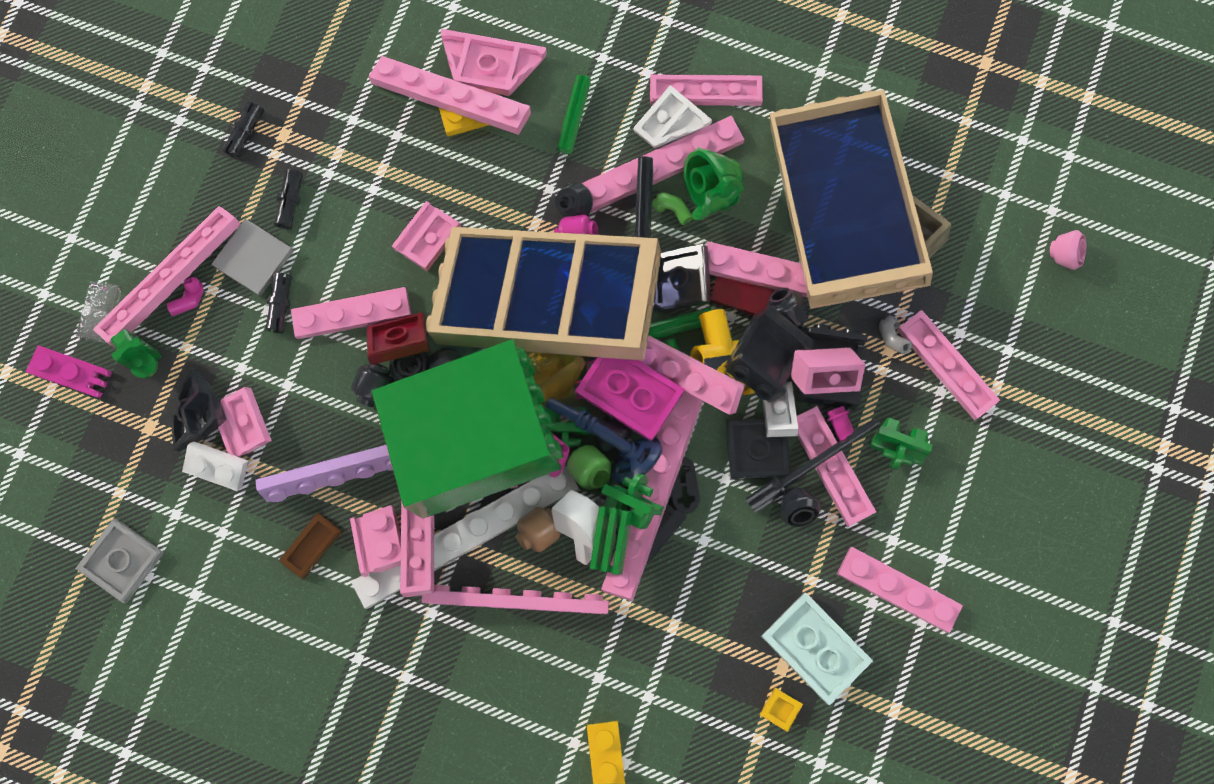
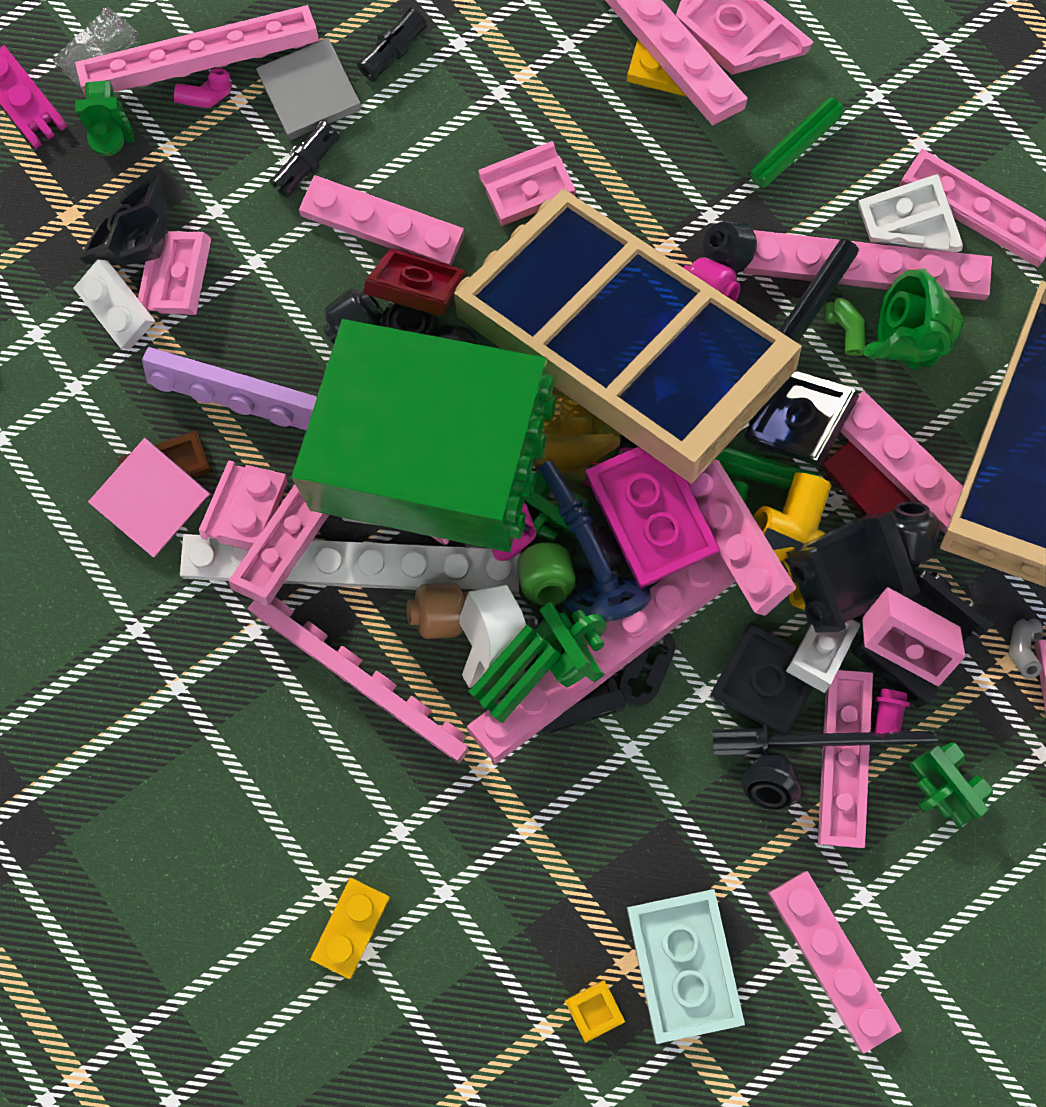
camera: 30 degrees right, 0 degrees up
(315, 572) = (149, 497): none -> bright pink tile

